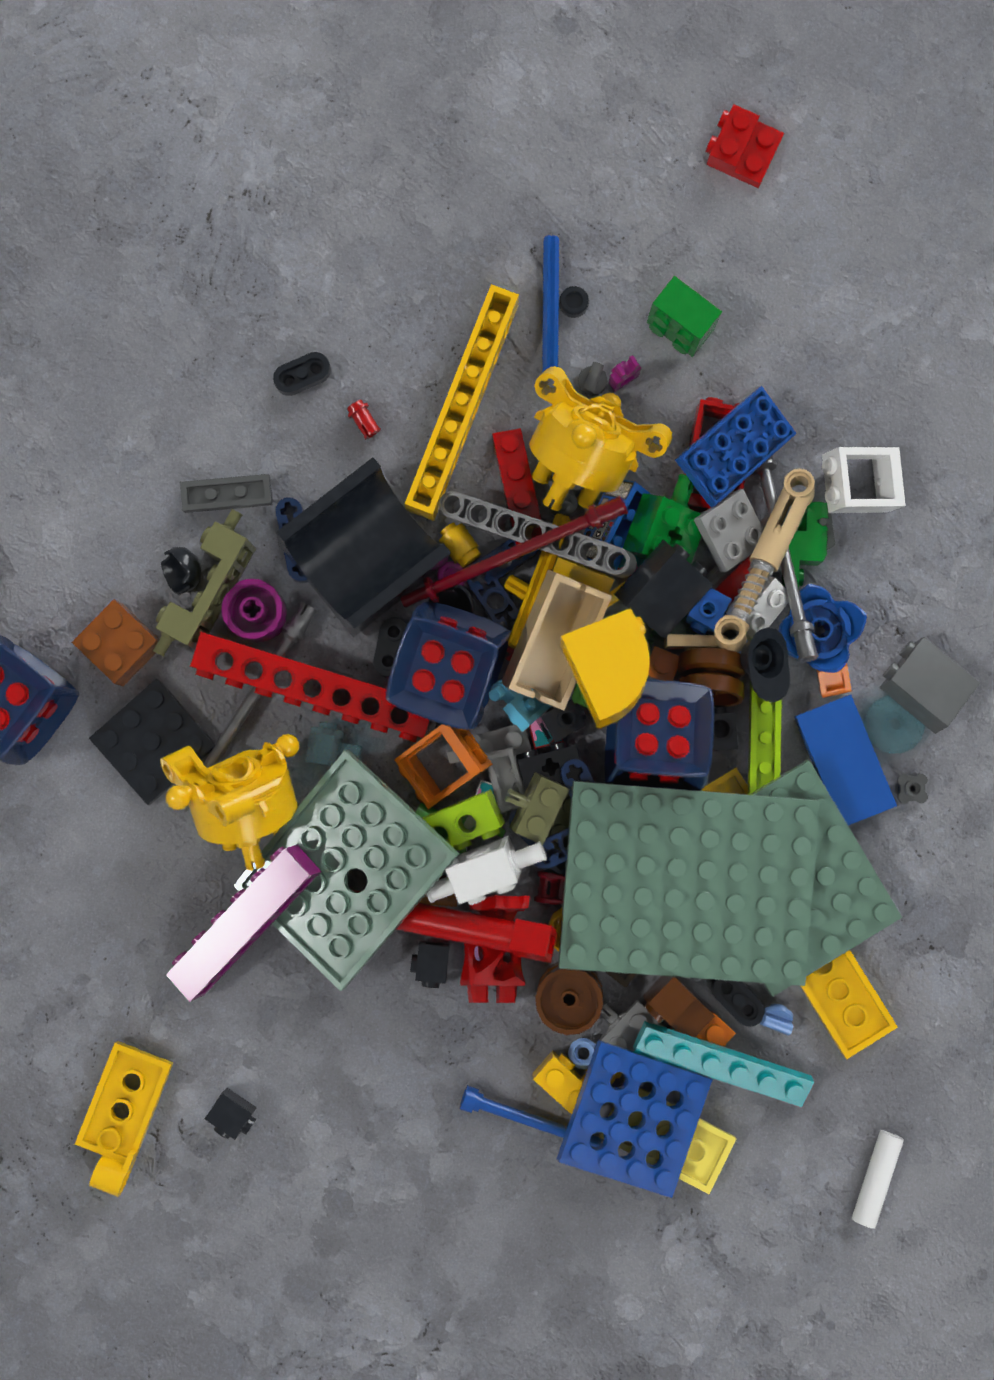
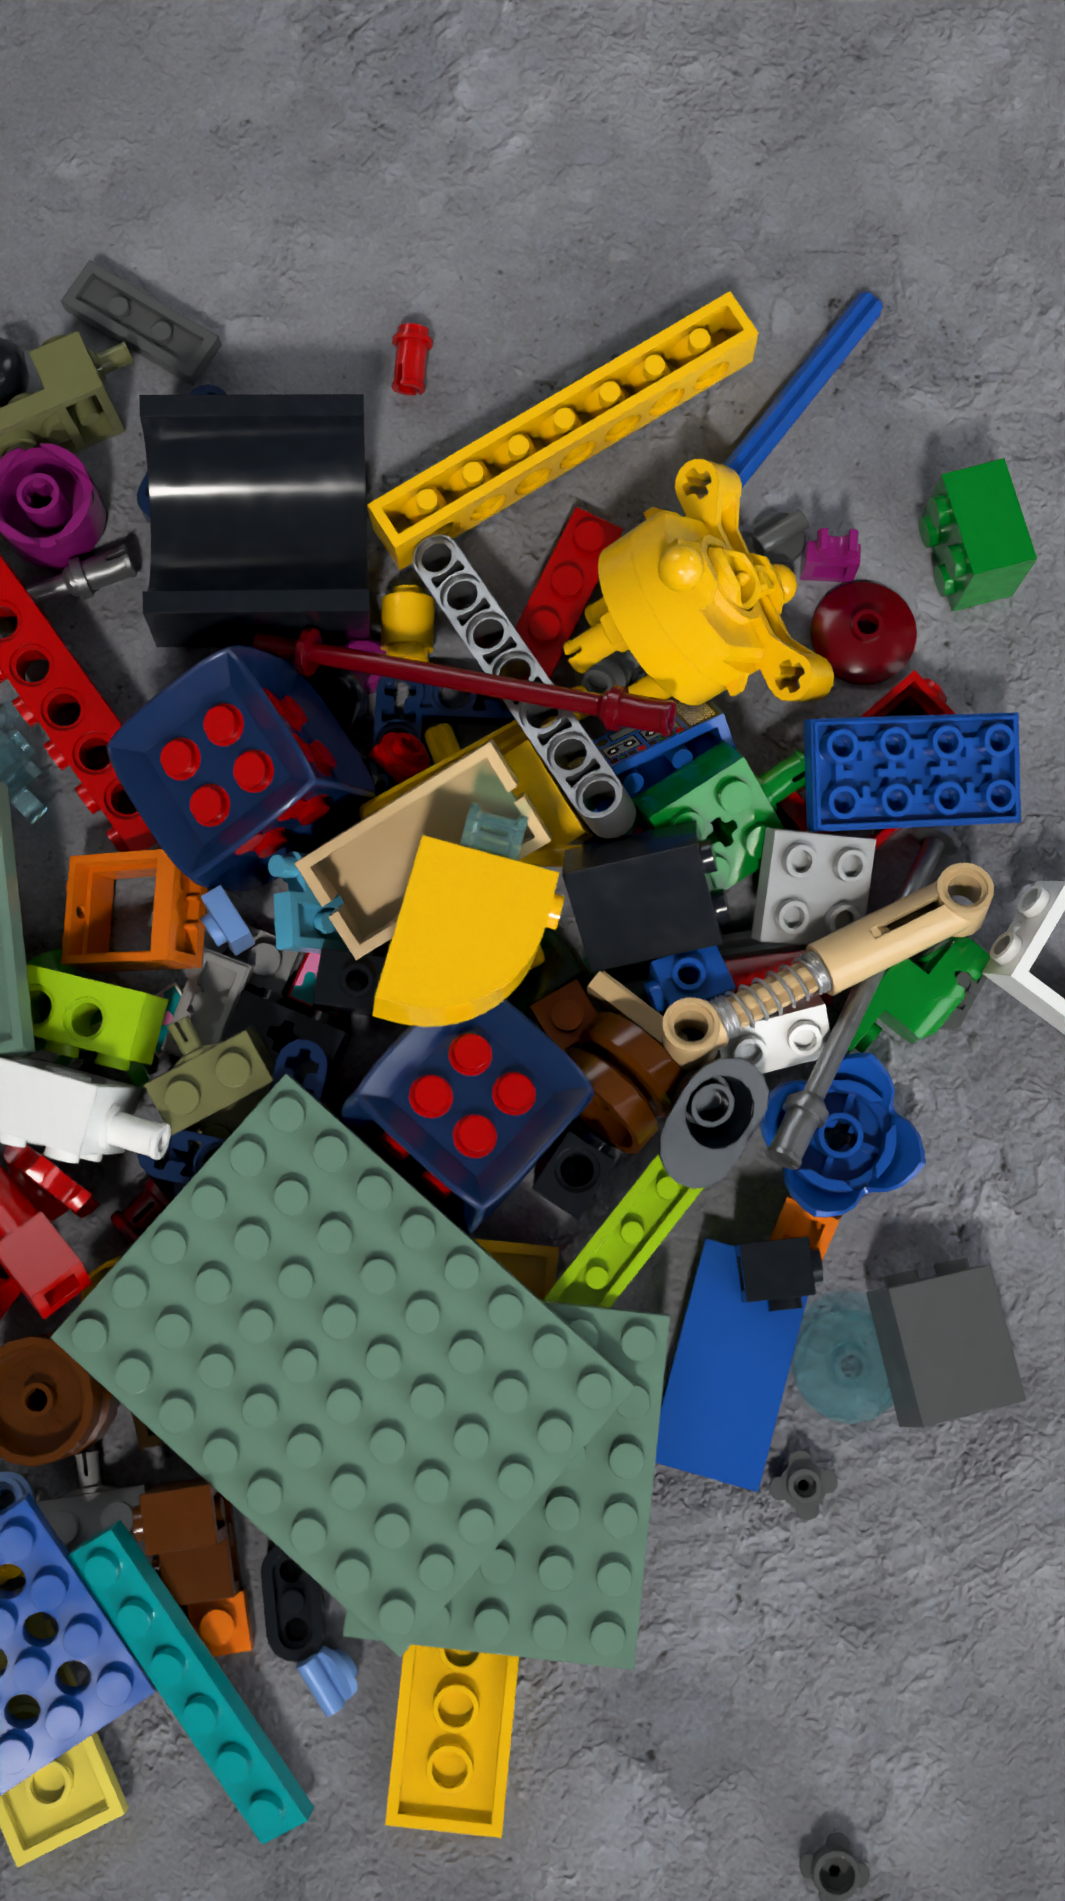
camera: 40 degrees right, 5 degrees down
(301, 371) = (377, 233): black plate -> none
(492, 737) = (224, 922): none -> medium blue plate
(505, 605) = (400, 756): none -> red plate
(574, 302) = (837, 412): black tile -> none
(596, 604) = (493, 832): none -> clear light blue bush
(658, 409) = (861, 656): none -> dark red dish
(838, 707) = (778, 1272): none -> black brick

